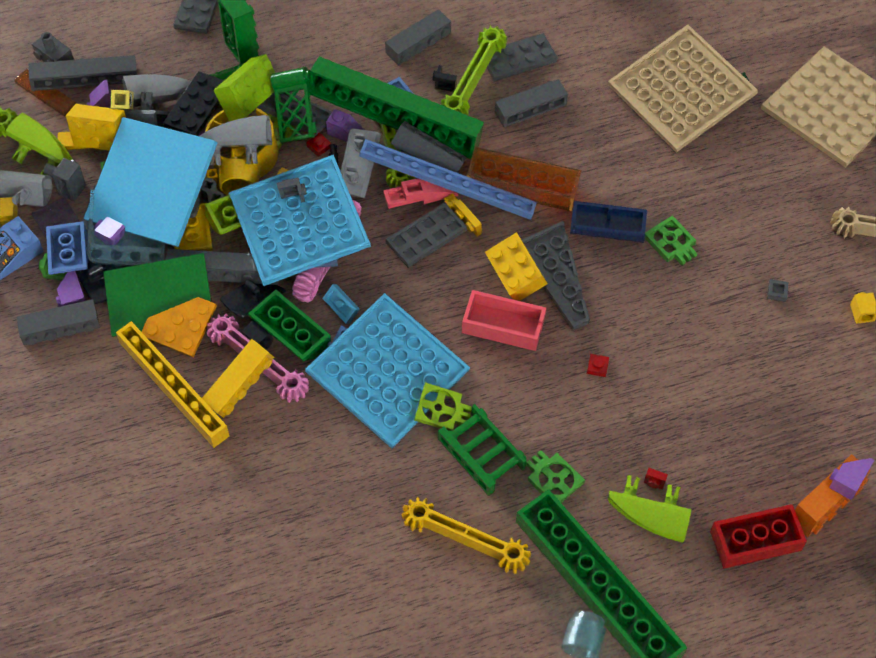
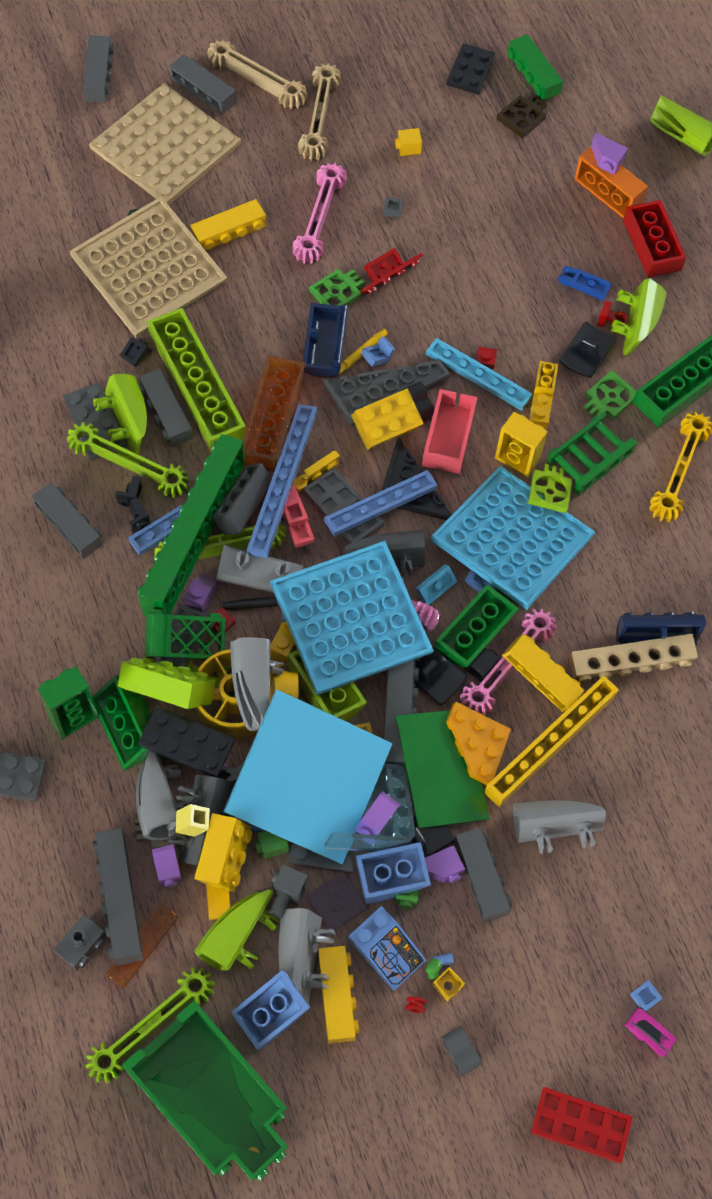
camera: 95 degrees left, 5 degrees up
(99, 372) = (555, 819): none -> light grey piece
(258, 509) = (682, 644): none -> tan brick
(275, 488) = (650, 626): none -> dark blue container
(291, 187) = (320, 620): dark grey bracket -> none
(378, 268) = (405, 547): none -> dark grey piece
(423, 85) = (140, 516): none -> black bracket
(424, 259) = (380, 503): none -> medium blue plate
(449, 290) = (404, 467): none -> black tile
(481, 373) = (521, 444): none -> yellow brick
(524, 75) = (129, 408): none -> lime piece
(541, 294) = (419, 395): none -> black axle
(550, 411) = (543, 393): none -> yellow slope
(560, 121) = (195, 377): none -> lime brick
(575, 355) = (479, 374): none -> medium azure plate
(592, 81) = (135, 350): none -> black bracket
(595, 267) = (378, 353): none -> medium blue bracket
(600, 257) = (356, 355): none -> yellow piece
(609, 458) = (587, 350): none -> black shield
(651, 489) = (619, 315): none -> red bush
(695, 467) = (585, 282): none -> blue hinge
(700, 278) = (385, 266): none -> red bracket
(738, 151) = (229, 225): none -> yellow brick
(805, 235) = (310, 247): none -> bright pink arm

